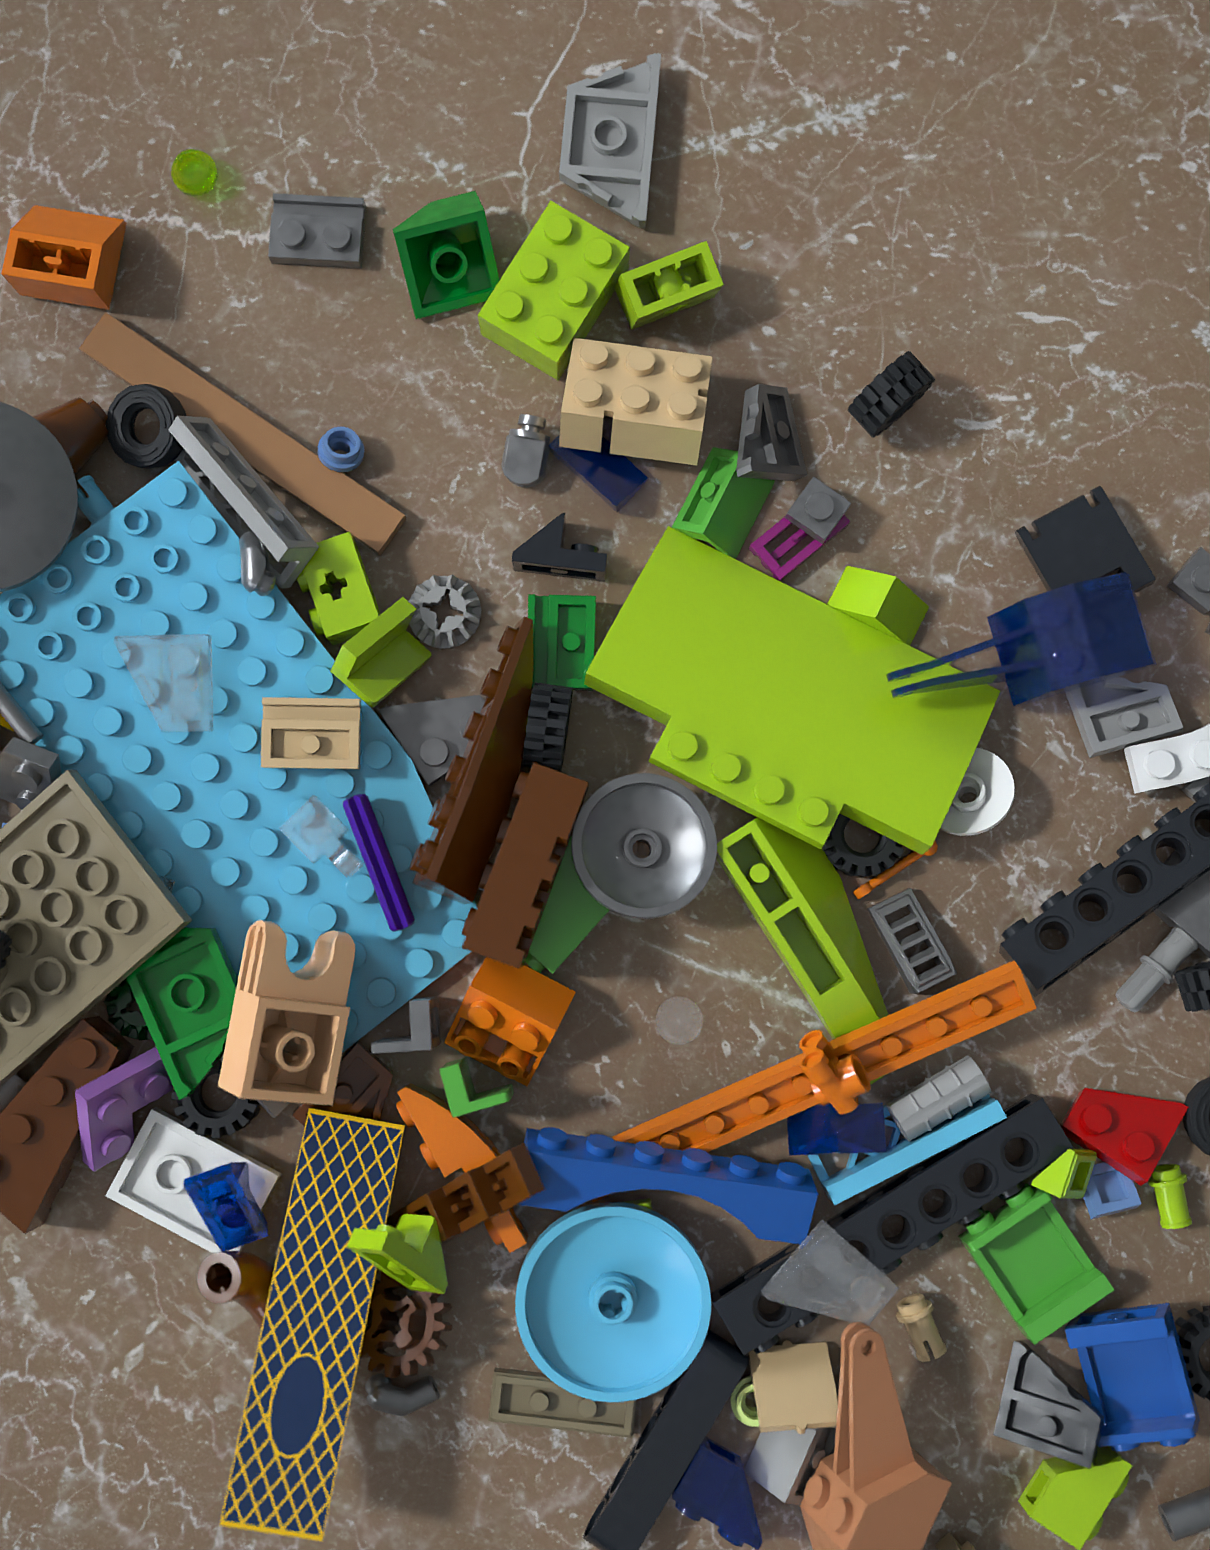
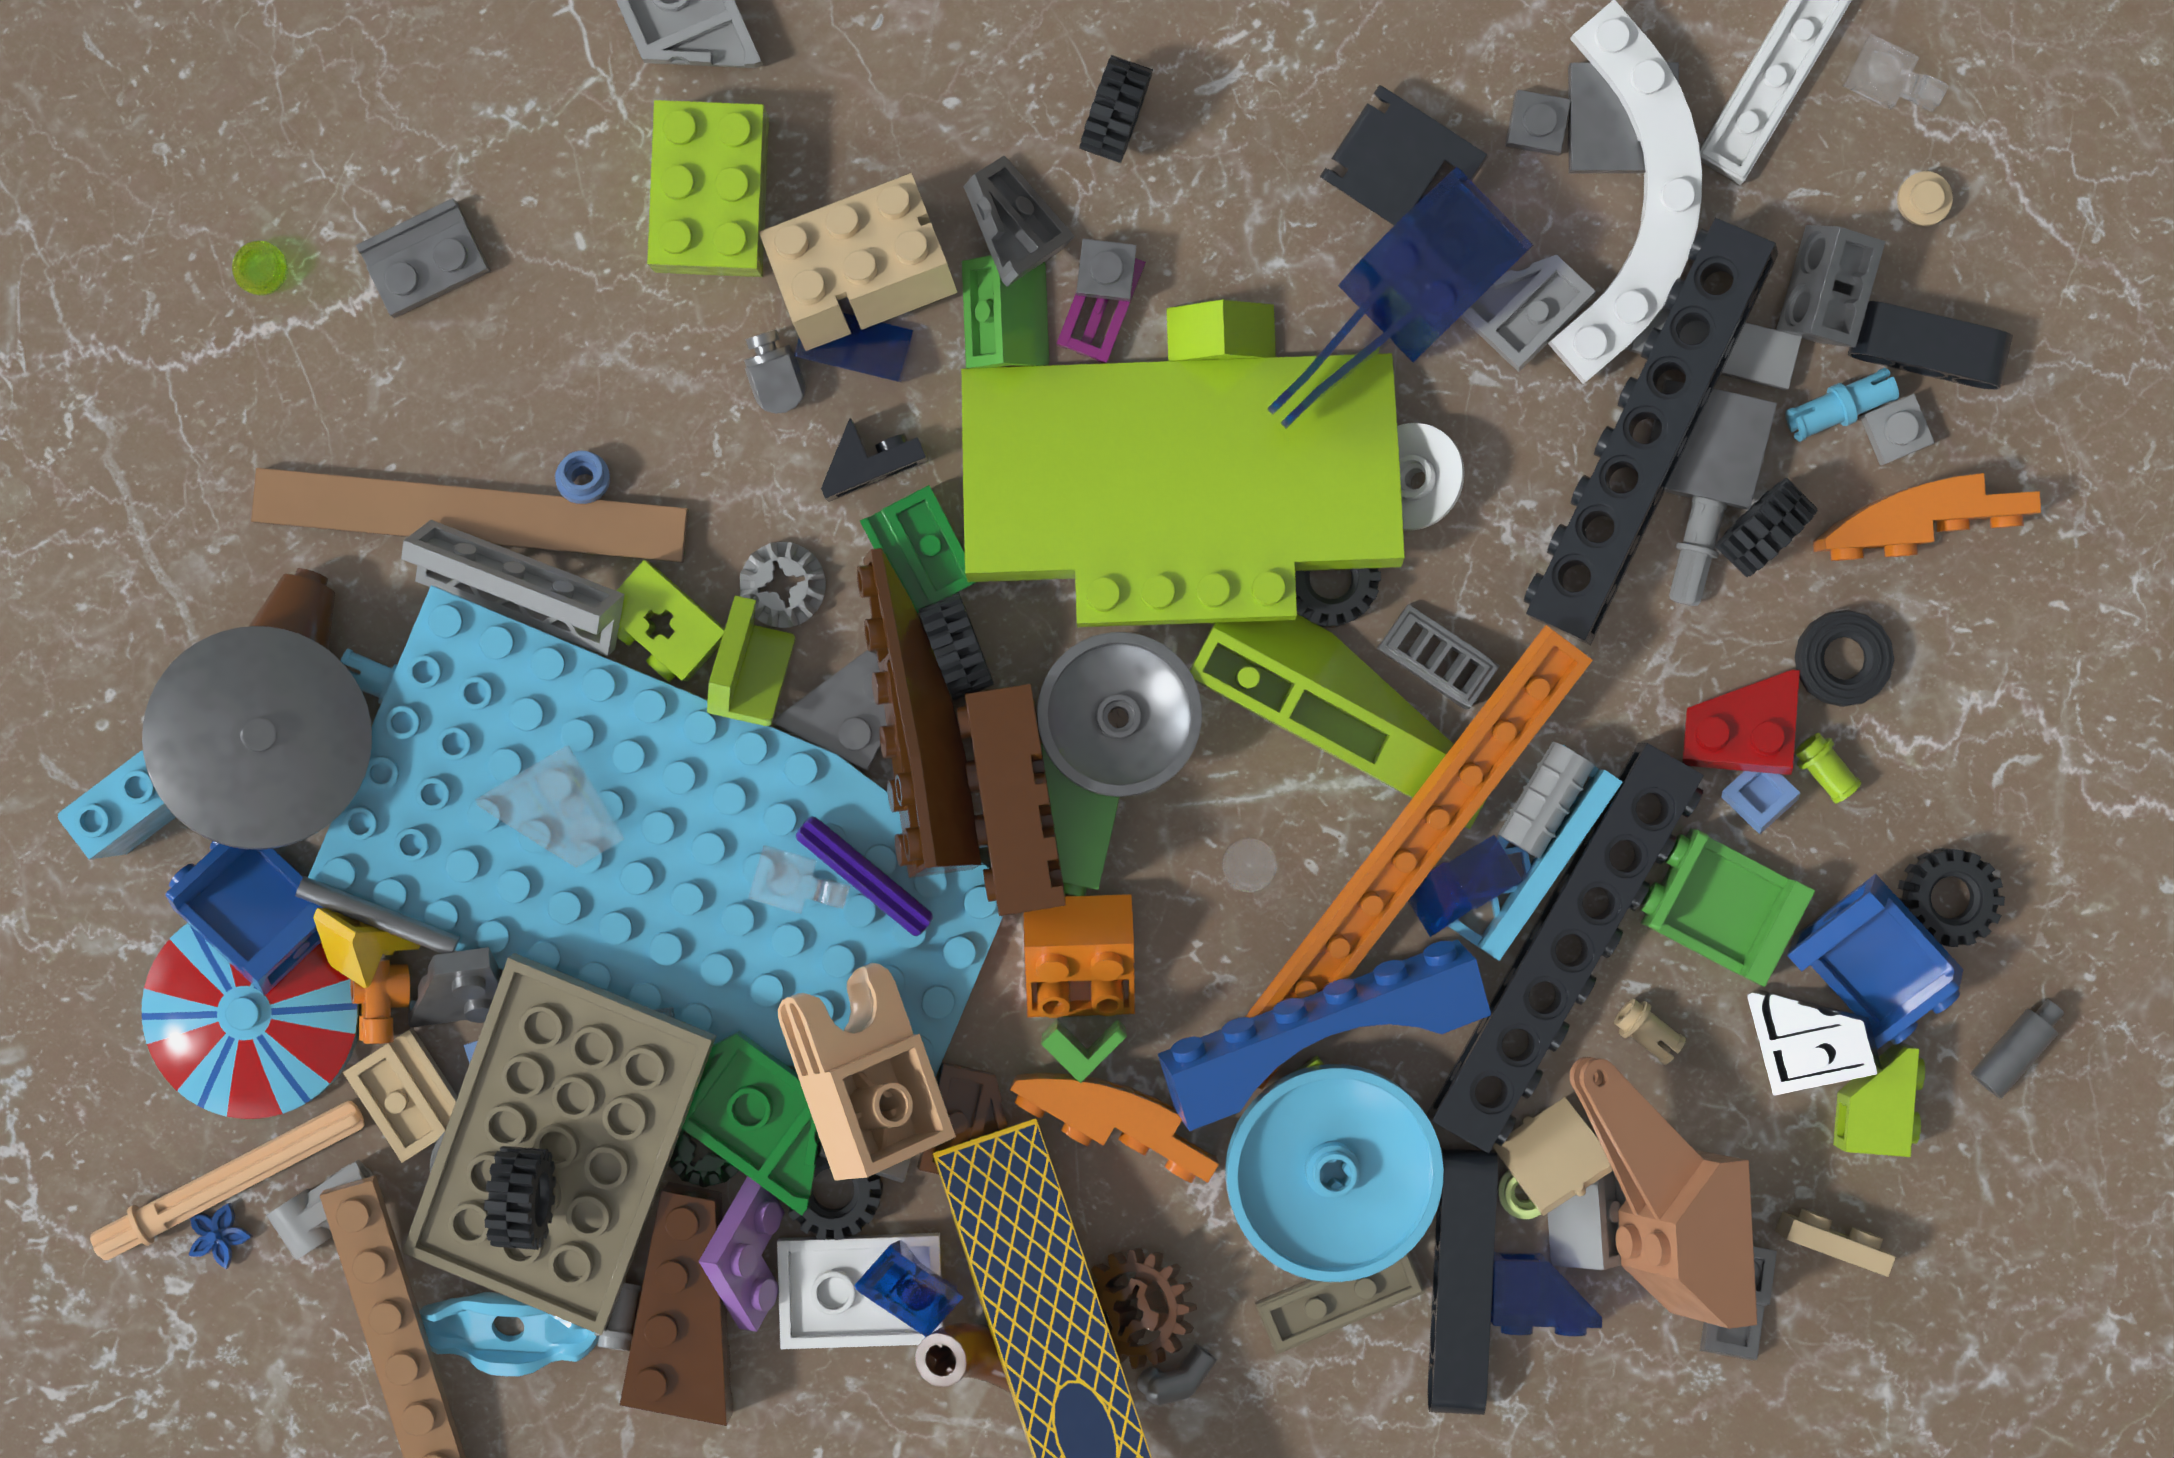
camera: 30 degrees left, 5 degrees up
(64, 256) = (181, 431): orange slope -> none
(122, 420) = (346, 582): black tyre -> none
(253, 565) = (571, 649): flat silver arm -> none
(310, 733) = (725, 786): tan plate -> none
(405, 1253) = (1107, 1236): lime slope -> none
(423, 1025) = (1002, 1013): flat silver panel -> none
(447, 255) = (577, 212): green slope -> none
(478, 1194) = (1135, 1162): reddish brown slope -> none
(668, 285) = (824, 120): lime brick -> none
(830, 1078) = (1427, 841): orange plate -> none
(831, 1279) = (1533, 1033): clear wing -> none
(888, 873) = (1366, 625): orange hinge -> none
(1068, 1174) = (1711, 804): lime slope -> none

